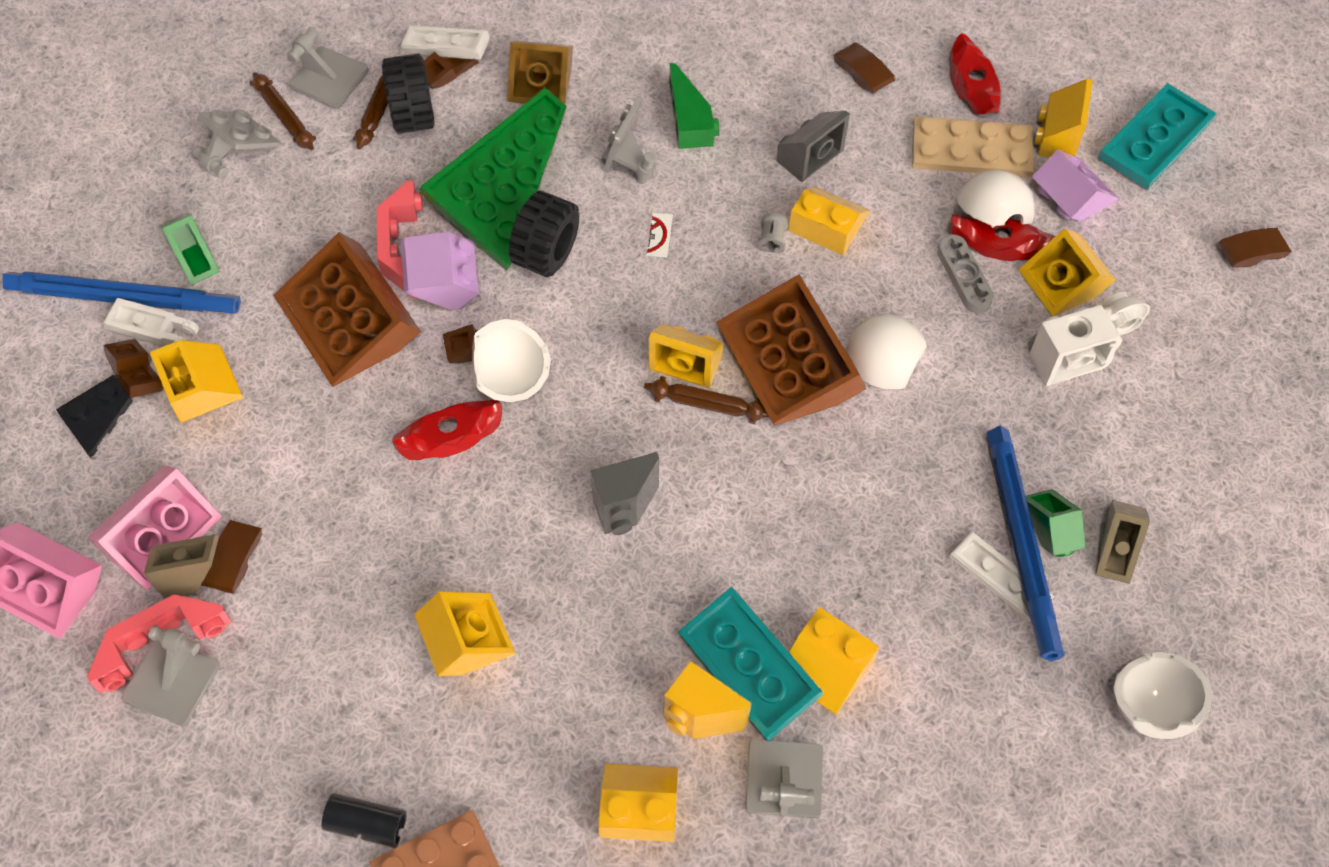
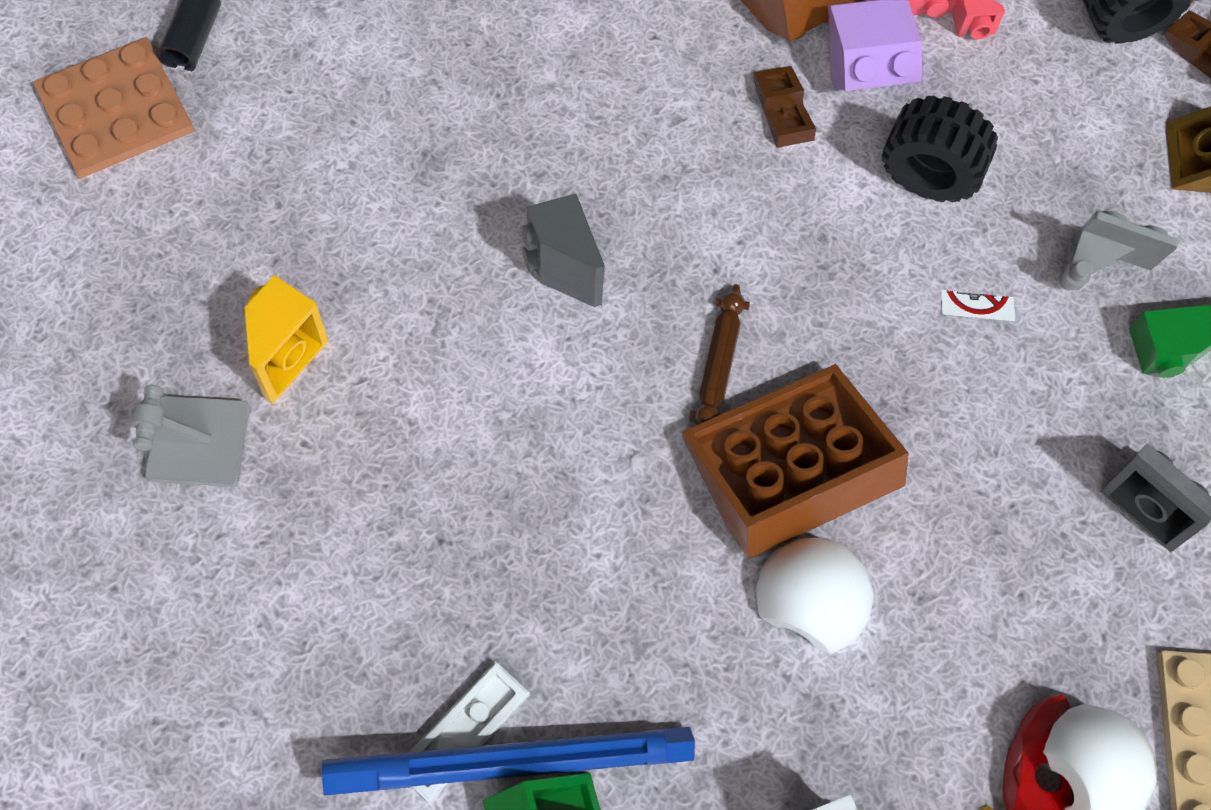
camera: 85 degrees right, 5 degrees up
(425, 440) = (670, 103): red piece -> none
(463, 632) = (397, 106): yellow slope -> none
(497, 175) = (1052, 113): green wing -> none
(509, 361) = (744, 123): white cylinder -> none
(638, 802) = (181, 280): yellow slope -> none
(684, 355) = (782, 323): yellow slope -> none
(751, 662) = (339, 397): teal plate -> none
(773, 233) = (996, 442): light grey bush -> none
(826, 219) = (1039, 518): yellow slope -> none
(833, 657) = (345, 493): yellow slope -> none
(967, 262) = (991, 693): light grey beam -> none

